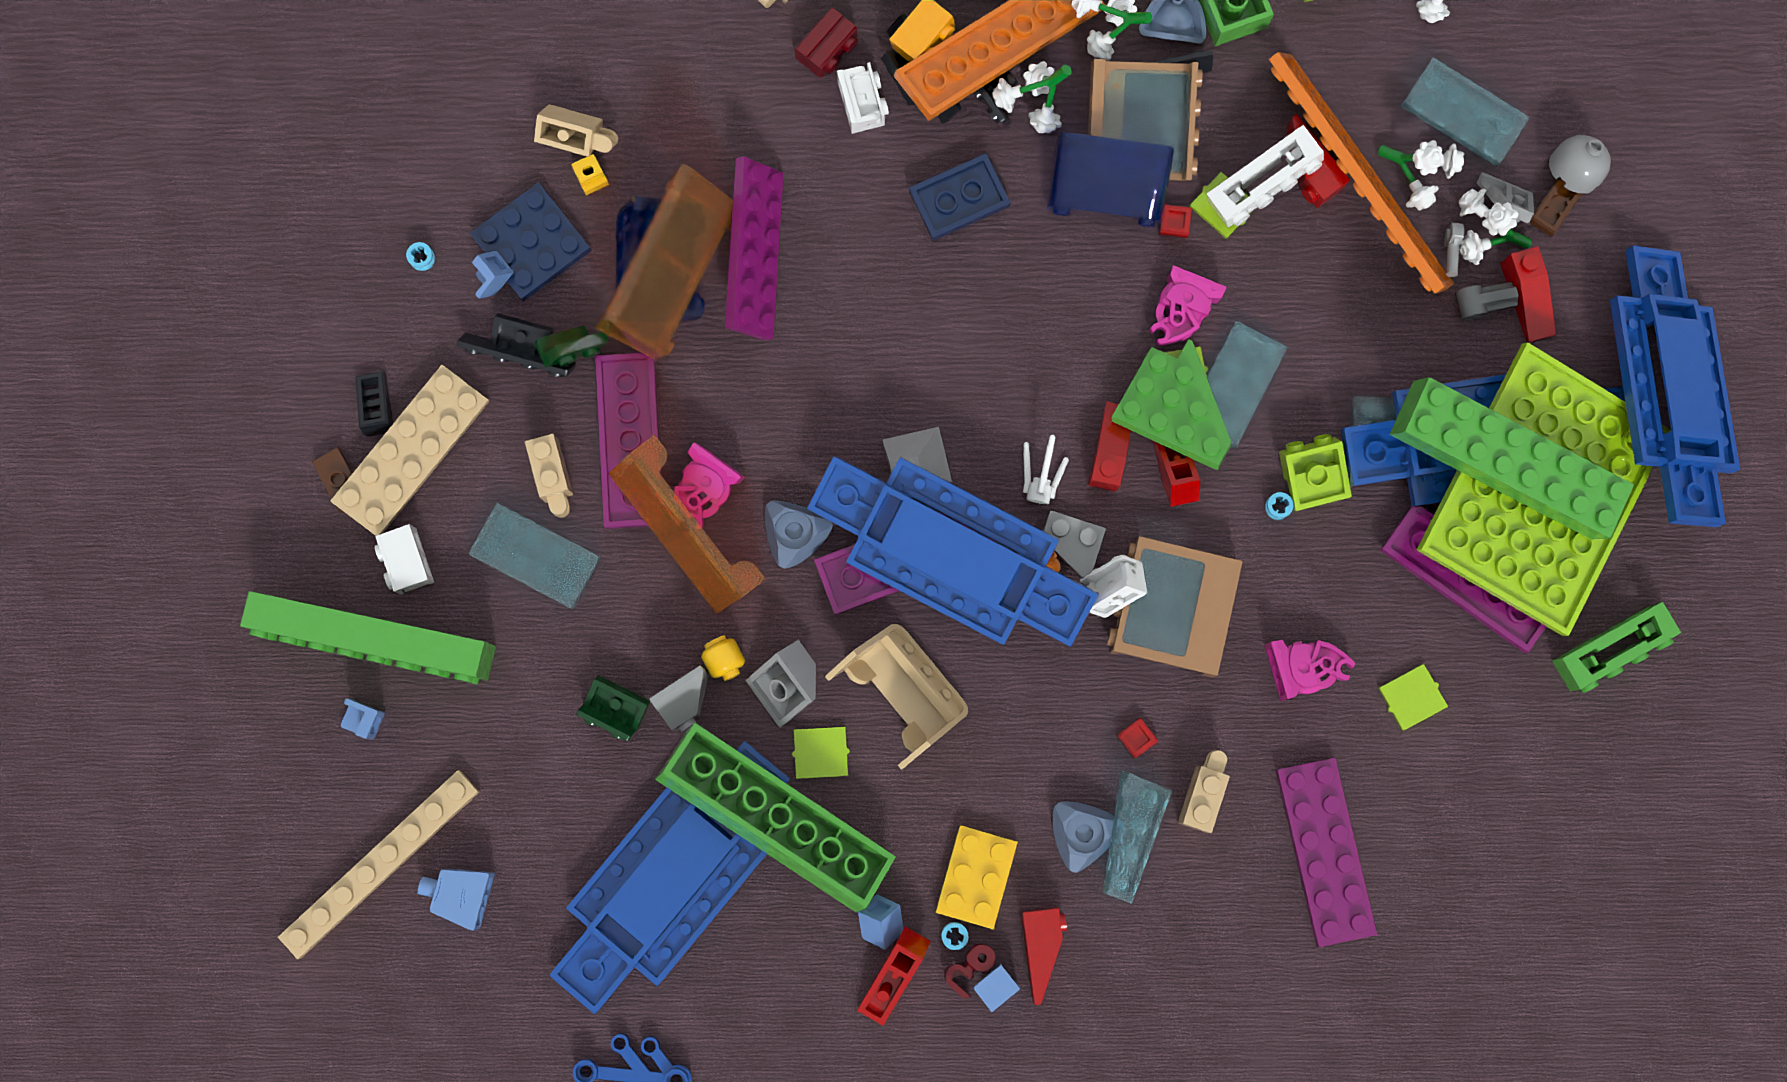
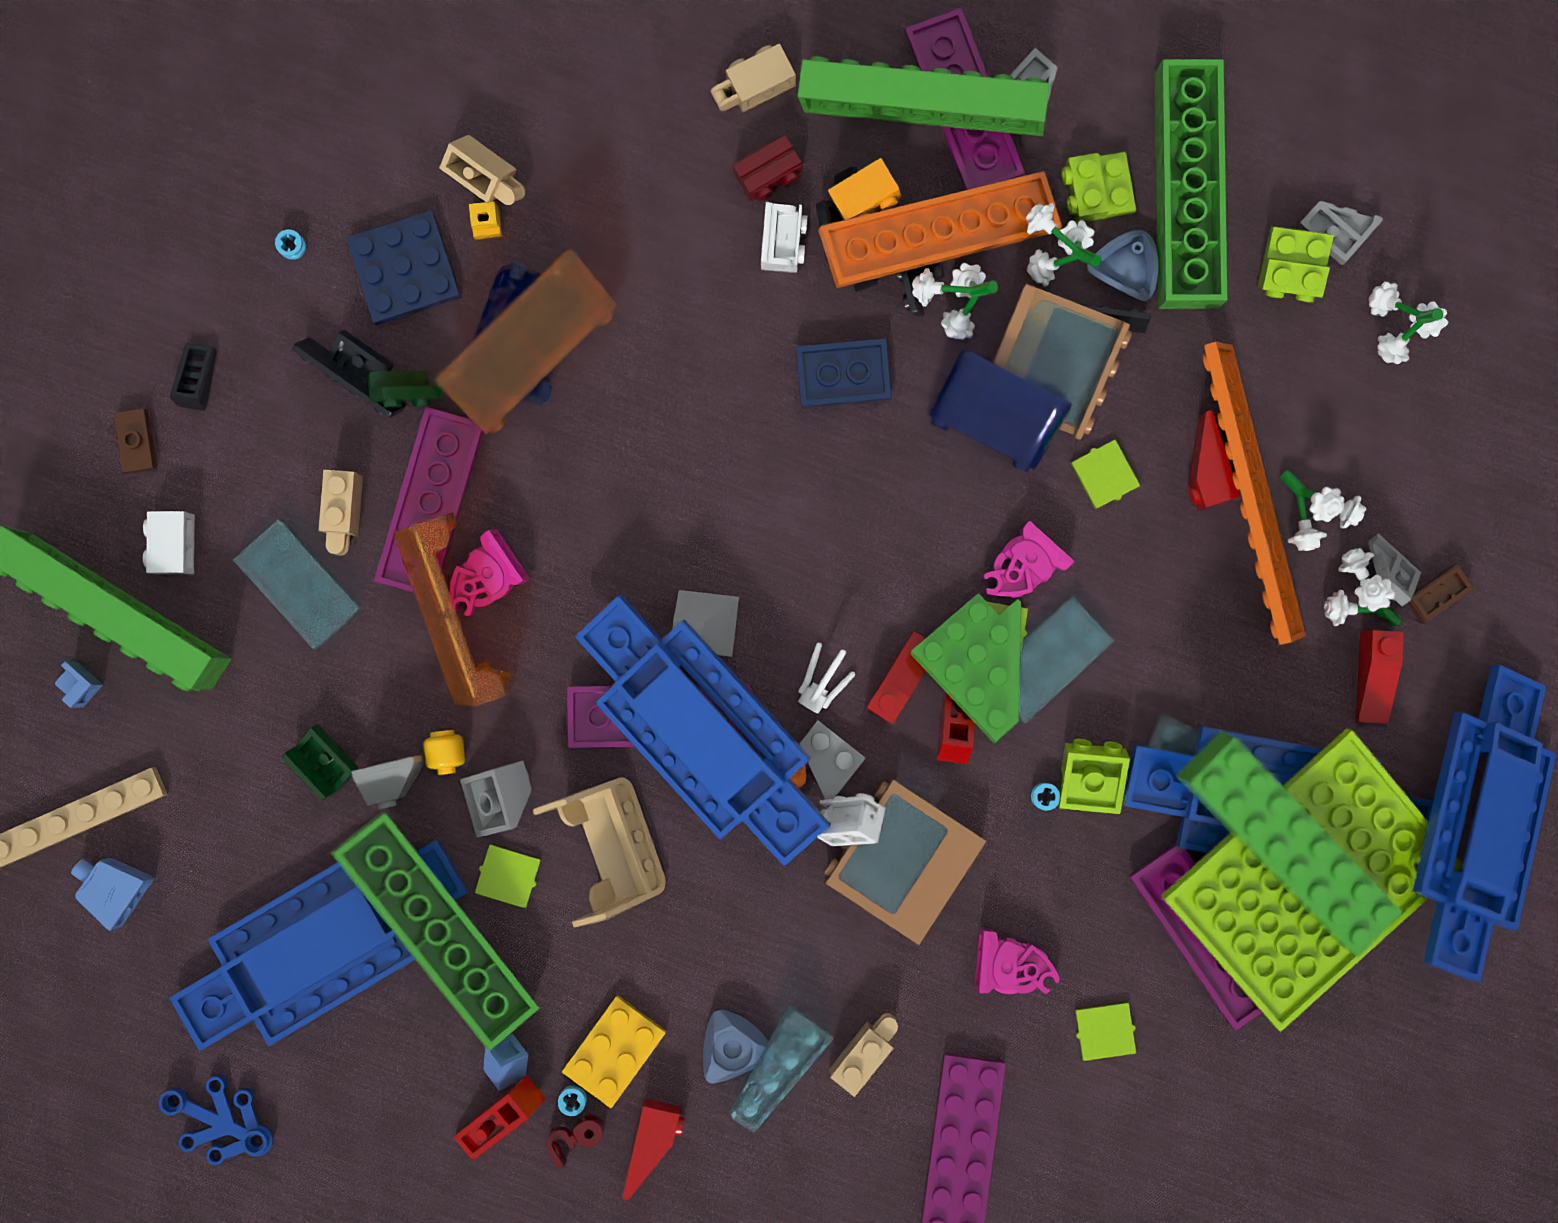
camera: 20 degrees right, 5 degrees up
(410, 451) = (212, 437): tan plate -> none
(491, 272) = (353, 285): medium blue panel -> none
(754, 249) = (618, 355): magenta plate -> none
(794, 532) = (556, 651): sand blue hat -> none
(996, 987) = (593, 1166): medium blue panel -> none
(1137, 738) = (820, 973): red tile -> none
(1175, 221) = (1051, 473): red tile -> none
(1304, 148) = (1172, 474): white brick -> none
(1452, 240) = (1321, 592): light grey bar -> none
(1465, 112) = (1385, 466): clear light blue plate -> none
(1479, 301) = (1324, 664): dark grey piece -> none
(1580, 163) = (1480, 561): light grey cylinder -> none
(1657, 625) = (1372, 1058): bright green brick -> none

